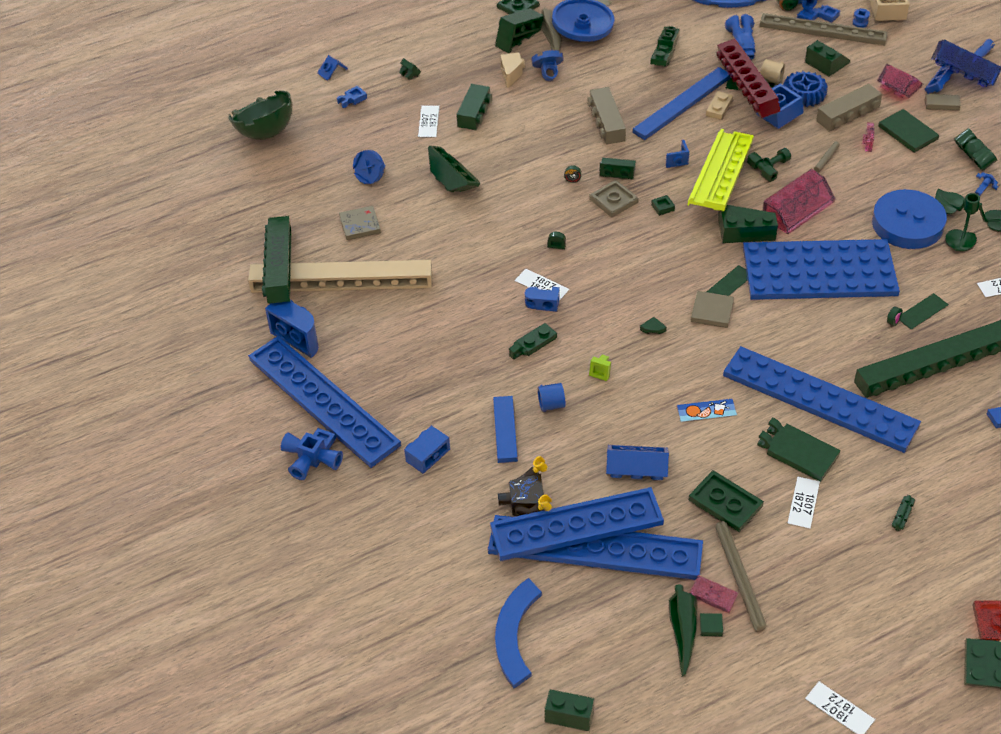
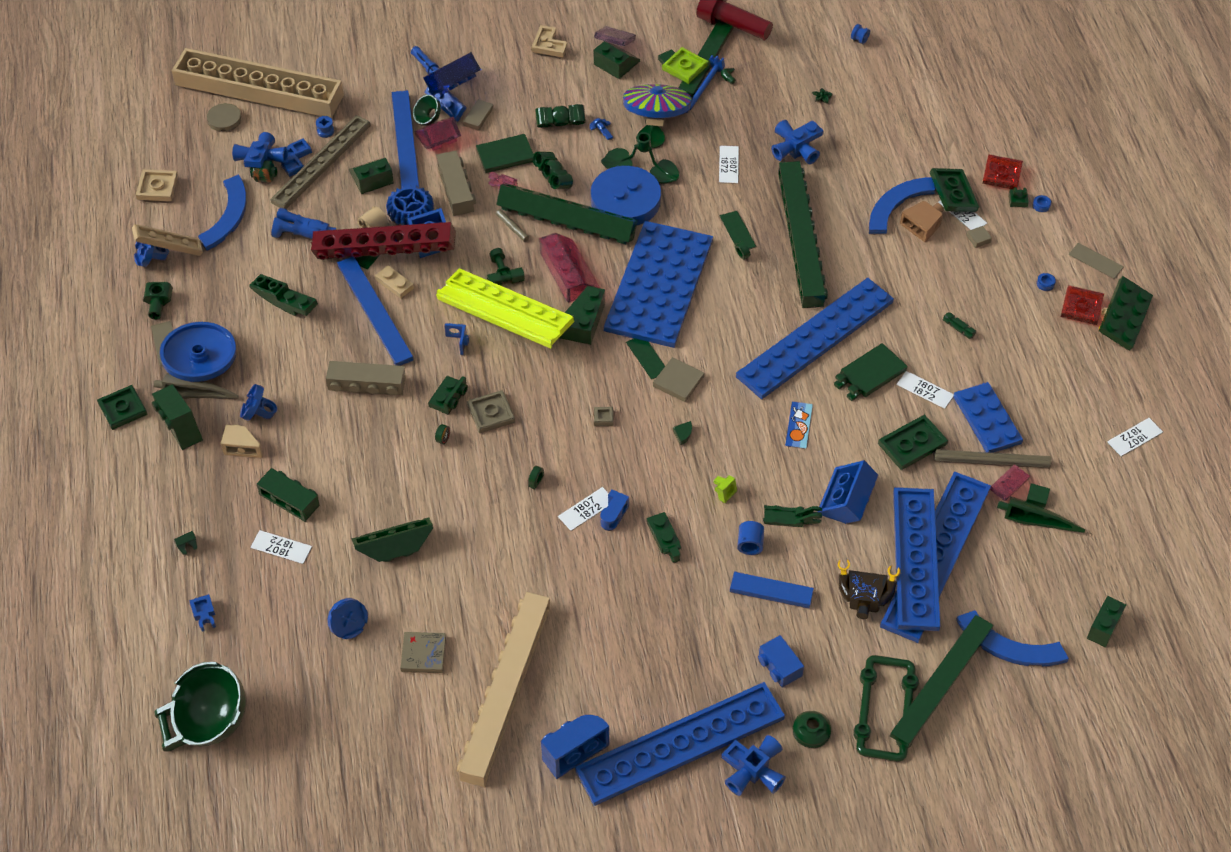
camera: 75 degrees left, 5 degrees up
(277, 260) = (474, 735): dark green brick -> none
(329, 67) = (135, 624): blue bracket -> none
(369, 496) = (811, 737): none -> dark green piece
(375, 529) = (868, 678): none -> dark green bar
(447, 575) = (941, 681): none -> dark green tile
(593, 423) = (791, 516): none -> dark green arm
(644, 269) = (603, 416): none -> dark tan tile
(663, 205) = (520, 374): dark green tile -> none
(792, 562) = (988, 418): none -> blue plate
(858, 183) = (566, 212): none -> dark green brick
(875, 68) = (405, 139): none -> blue tile
(904, 161) = (552, 170): none -> dark green piece
(919, 67) = (423, 108): none -> dark green piece

